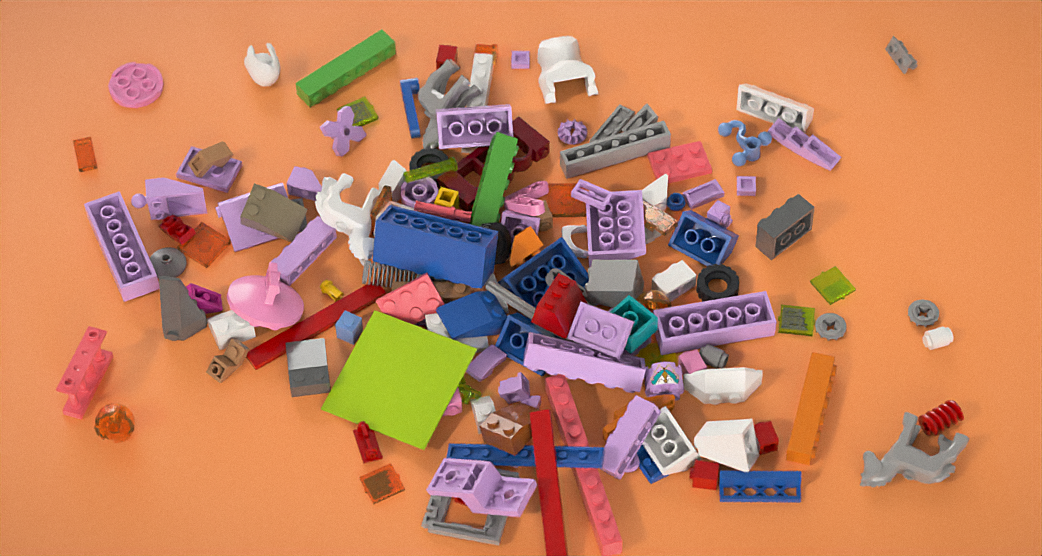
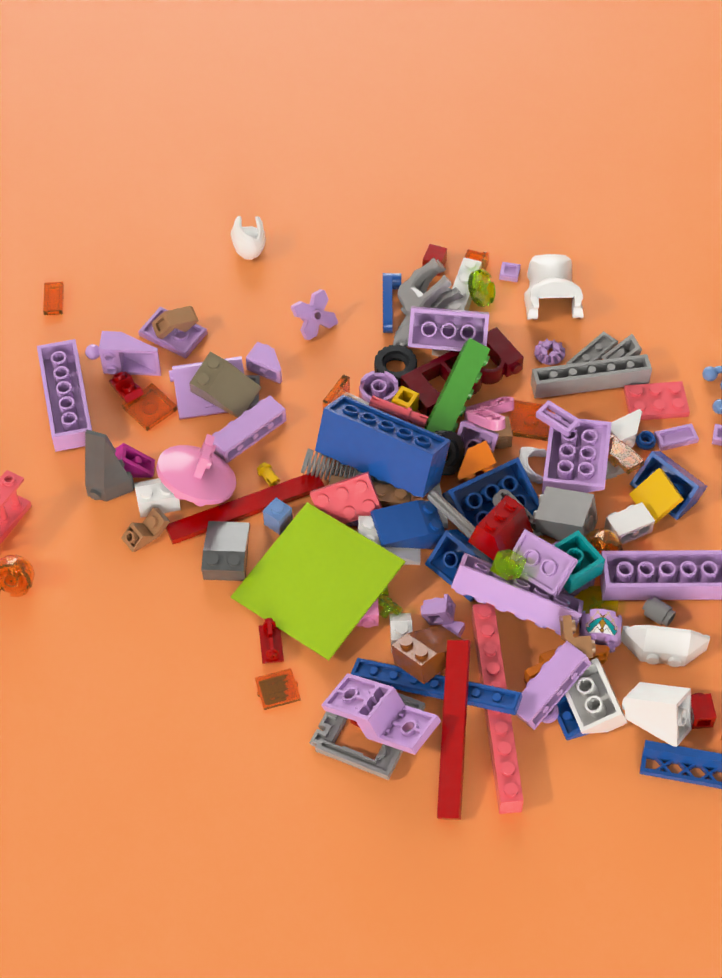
camera: 10 degrees right, 0 degrees up
(135, 85) = (120, 239): bright pink tile -> none
(173, 266) = (111, 425): light grey dish -> none
(346, 68) = (331, 253): bright green brick -> none
(347, 217) = (297, 401): white animal -> none
(363, 112) = (338, 300): piece -> none
(394, 178) = (355, 368): white slope -> none
(430, 170) = (394, 367): clear neon green axle -> none
(484, 363) = (411, 577): lavender slope -> none
(497, 80) = (481, 288): none -> clear neon green tile
(571, 336) = (508, 564): none -> clear neon green brick
(652, 395) = (583, 643): none -> medium nougat slope
(691, 362) = (633, 614): bright pink brick -> none
(694, 250) = (657, 495): none -> yellow tile
(704, 475) = (627, 741): red brick -> none
(717, 272) = (678, 521): black tyre -> none
(720, 214) = (690, 460): lavender brick -> none

